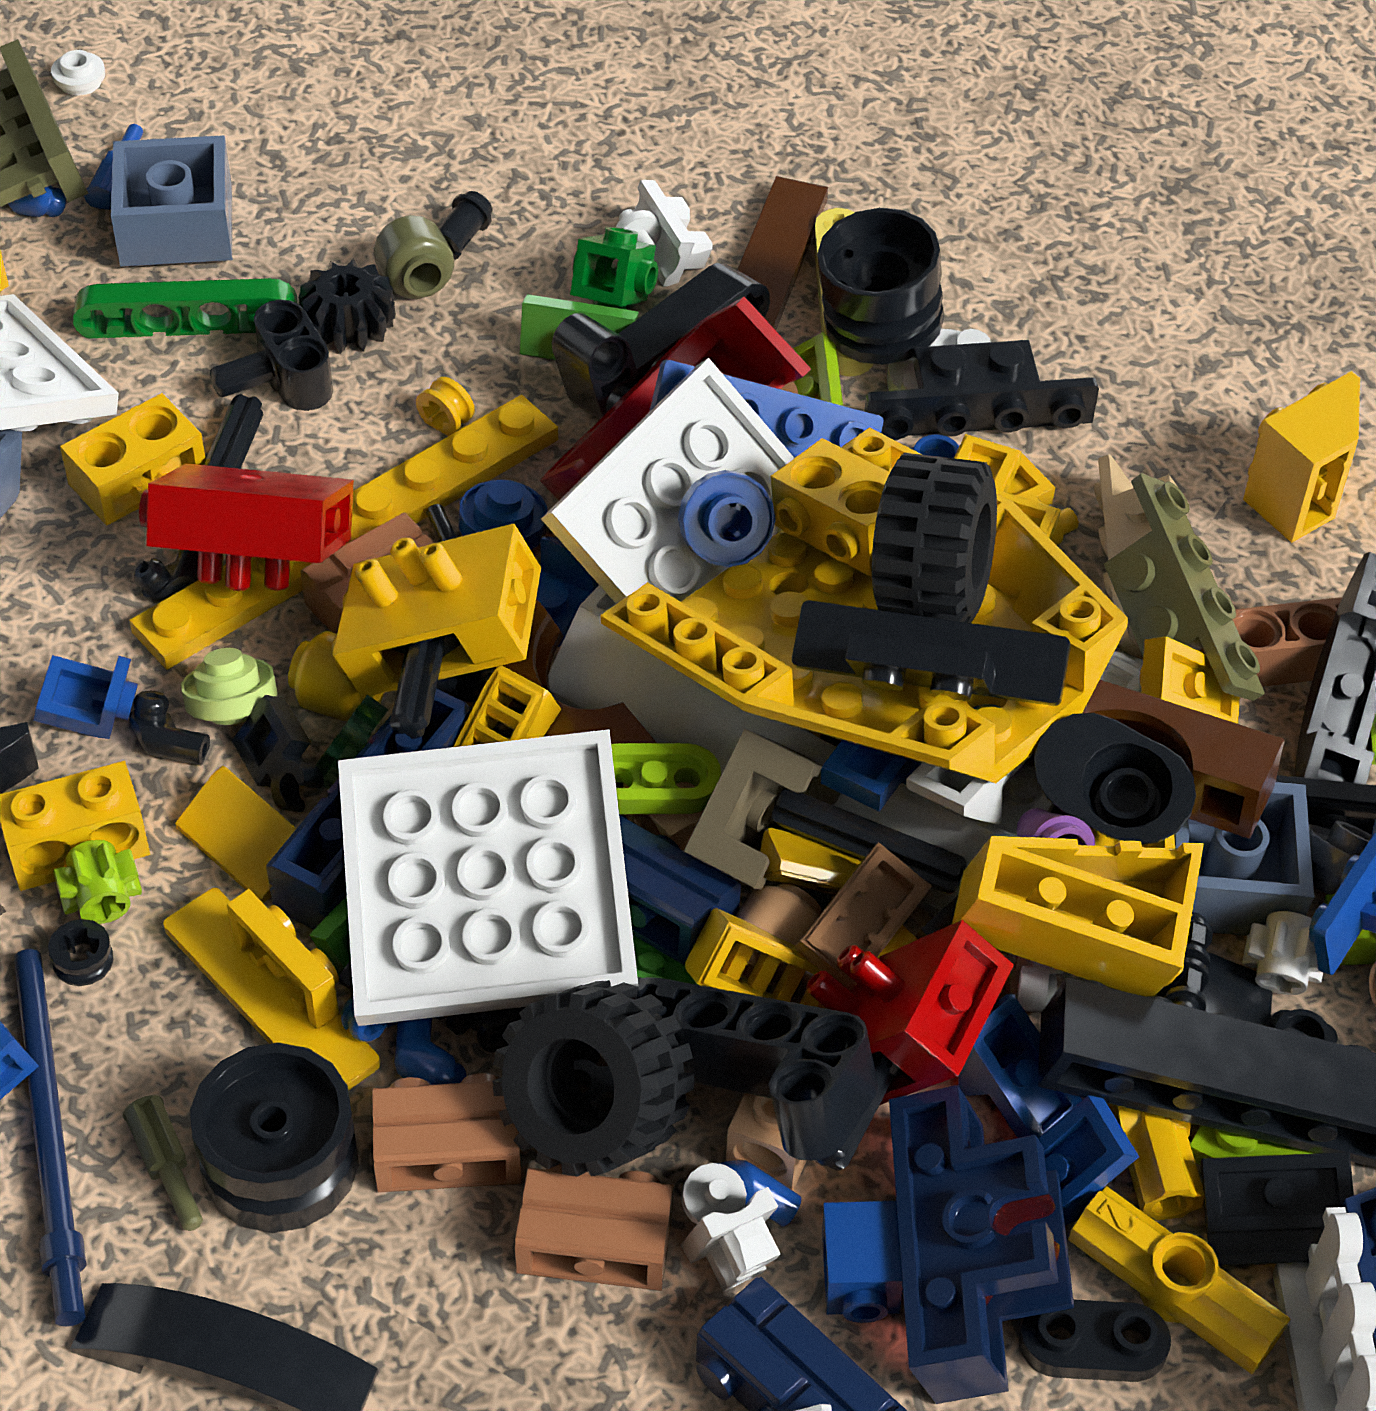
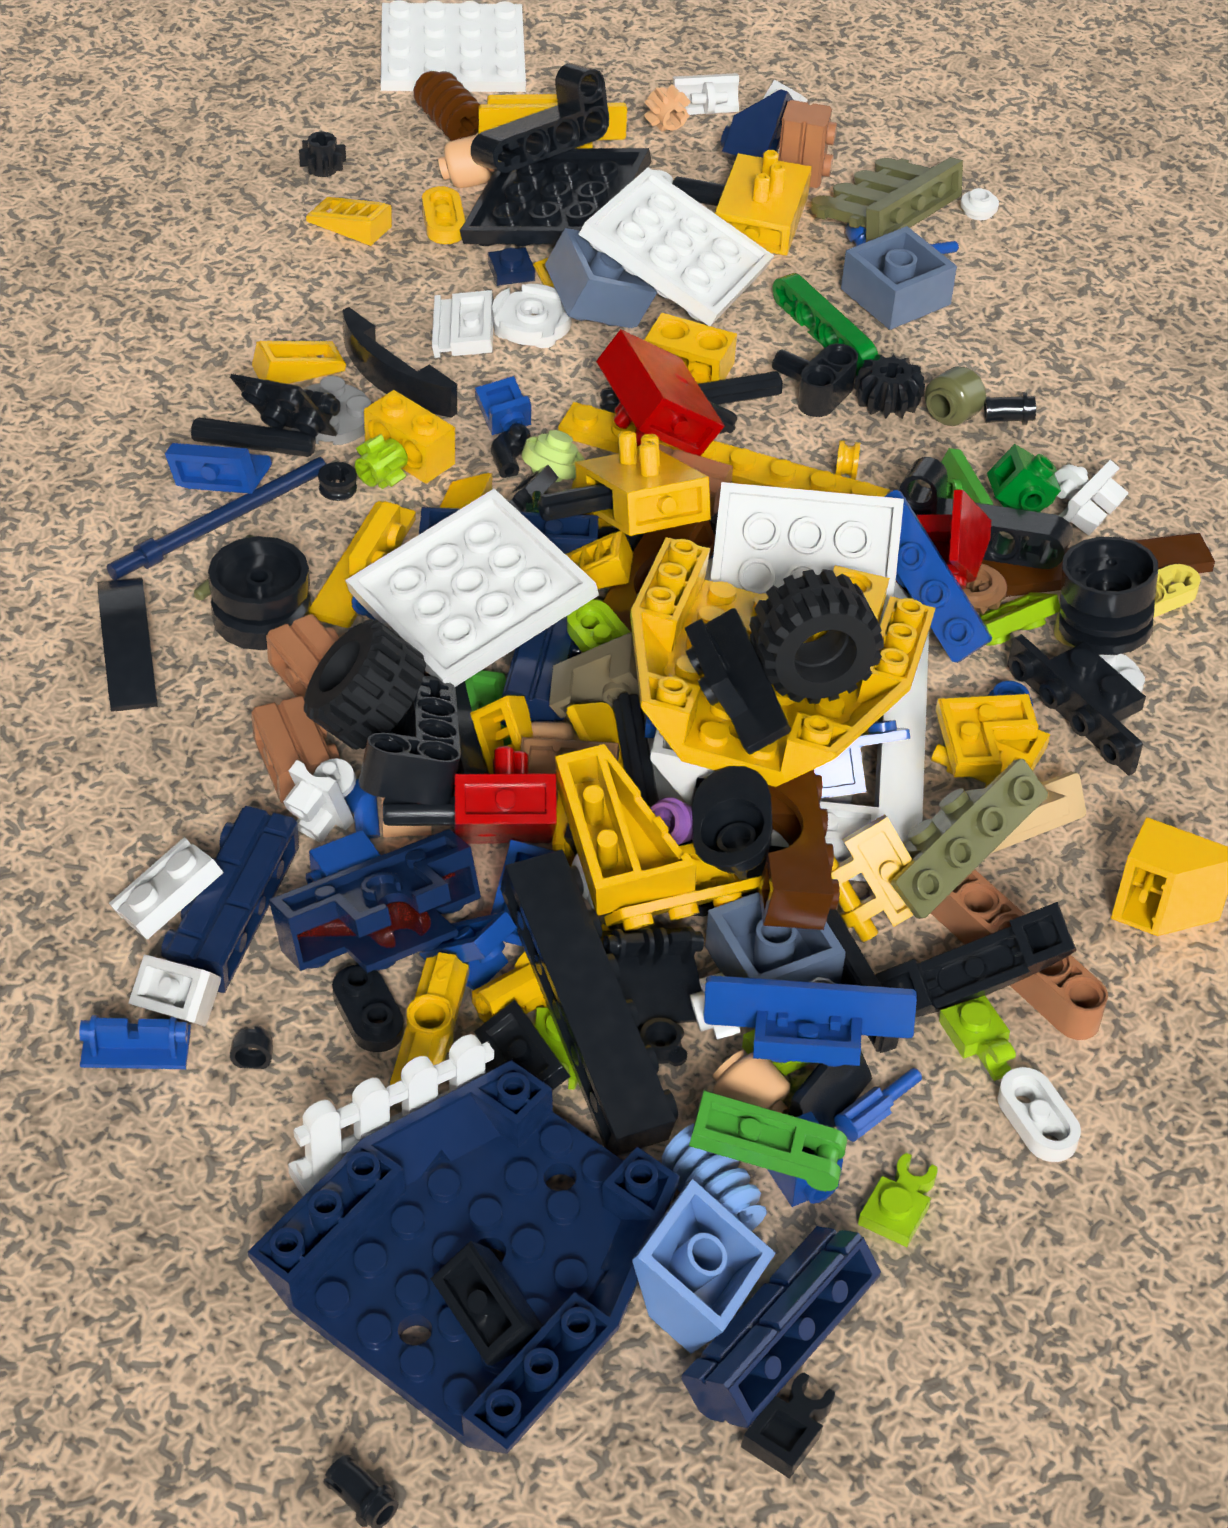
camera: 60 degrees right, 5 degrees down
(726, 518) = (793, 556): blue plate -> none

